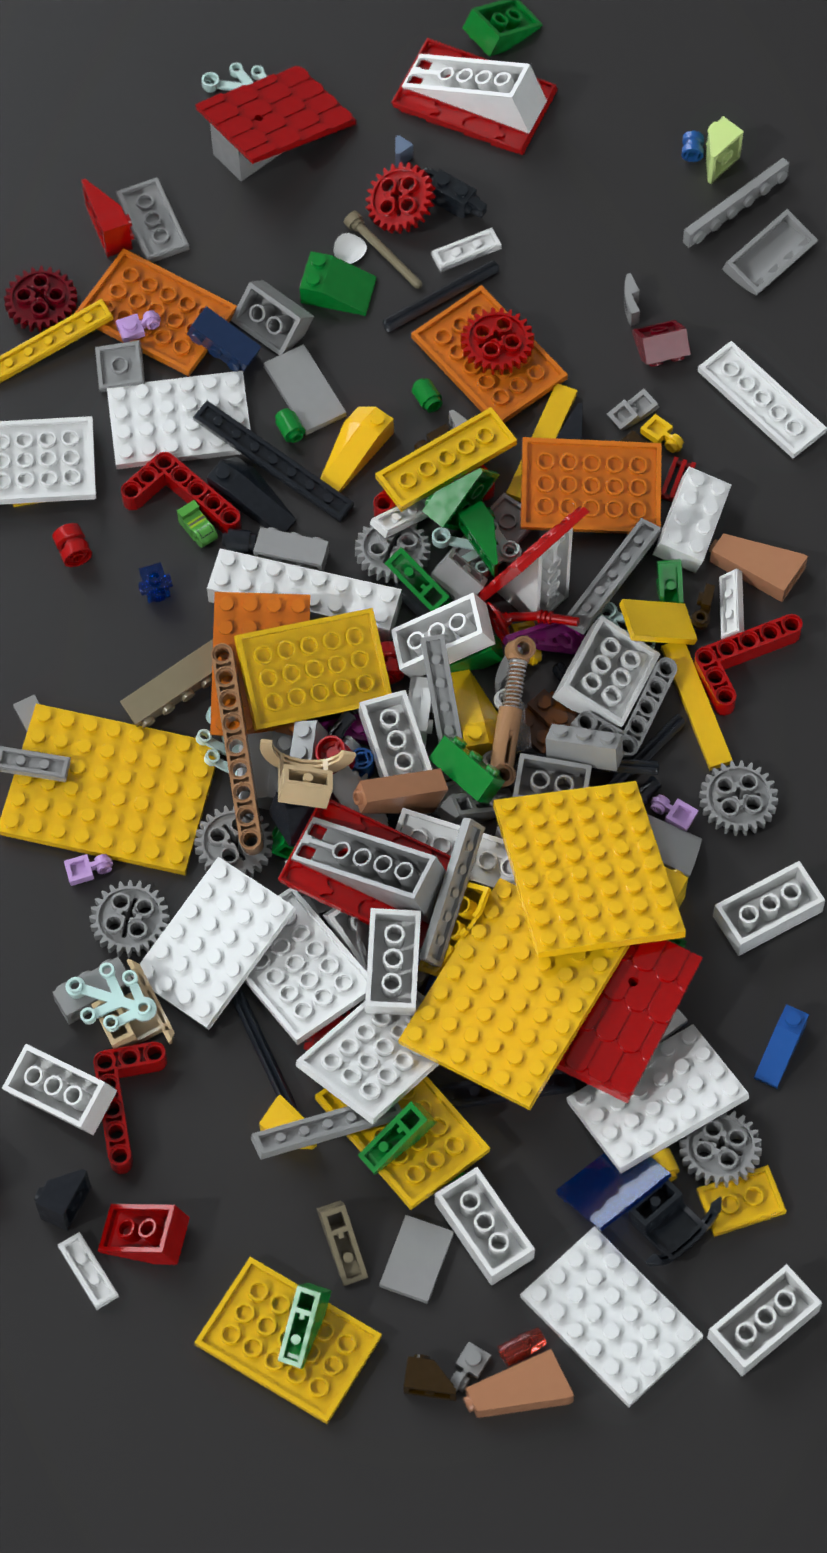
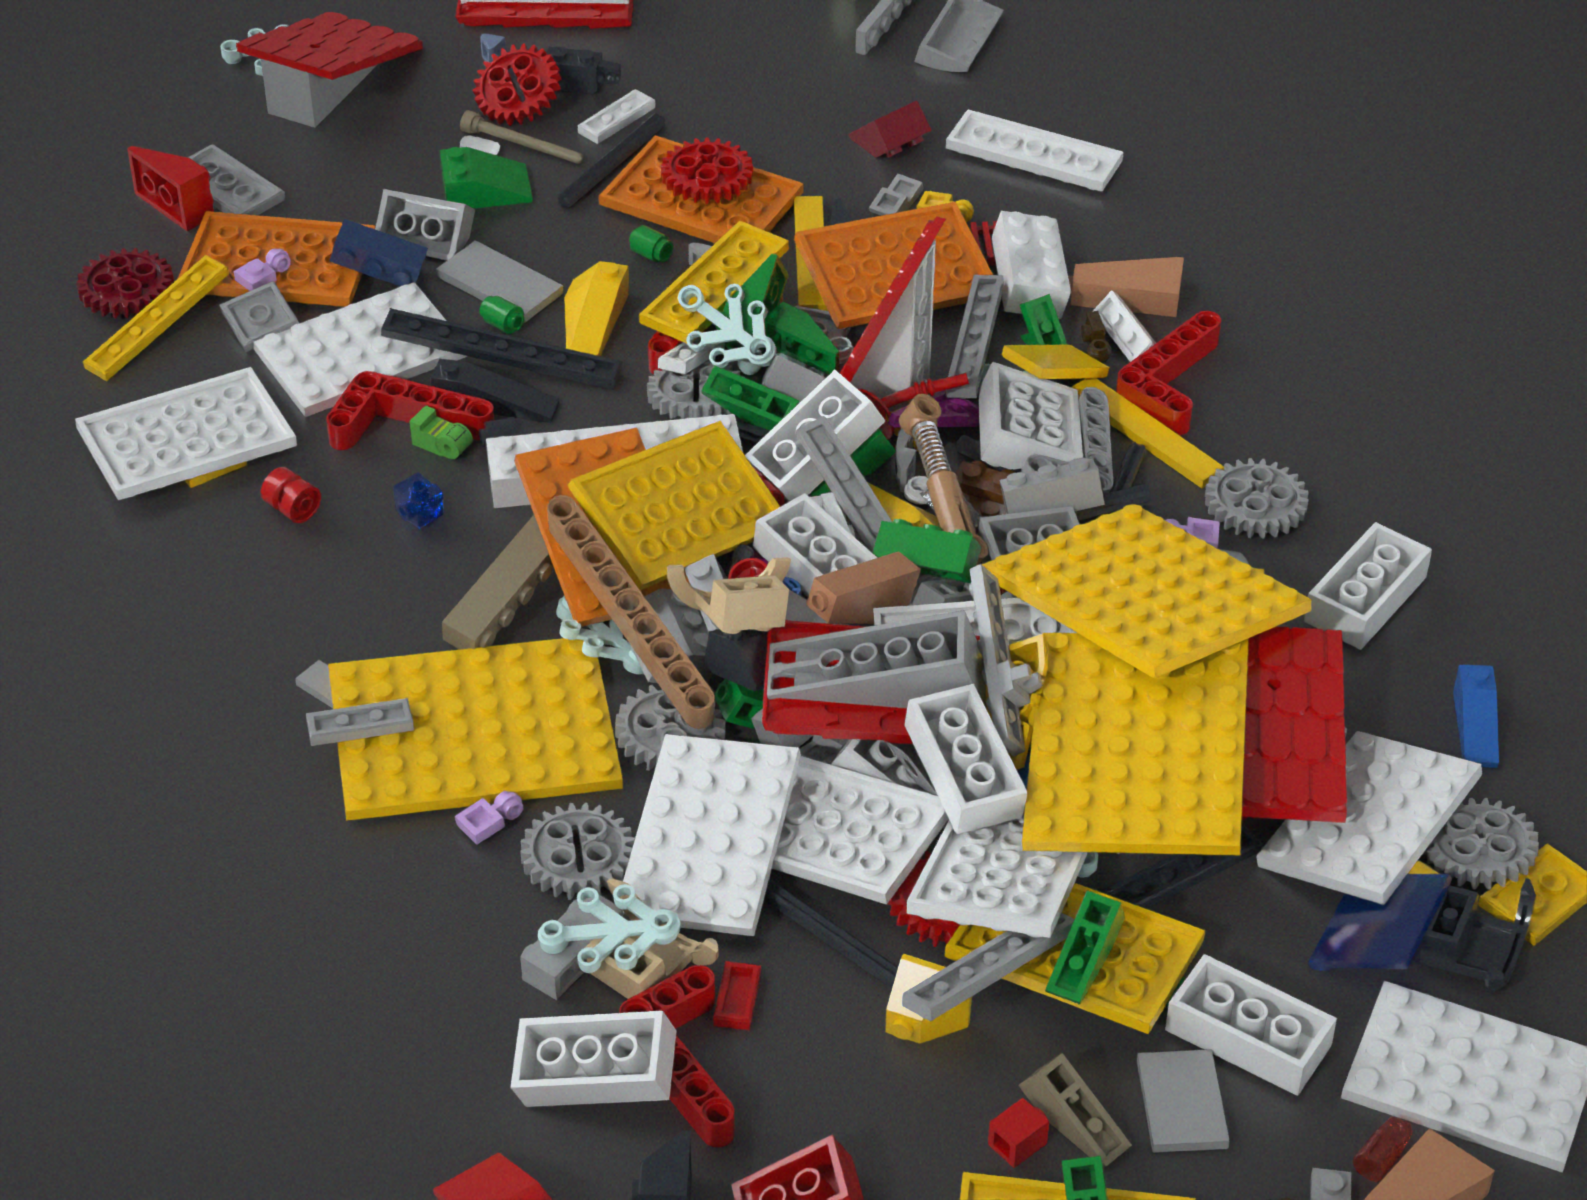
camera: 25 degrees left, 20 degrees down
(180, 1068) = (737, 995): none -> red tile
(292, 548) = (572, 416): light grey brick -> none
(300, 1241) = (1018, 1132): none -> red brick
(430, 514) = (731, 329): none -> light aqua plant
(453, 917) = (1017, 682): none -> light grey tile
(631, 298) = (832, 107): light grey slope -> none

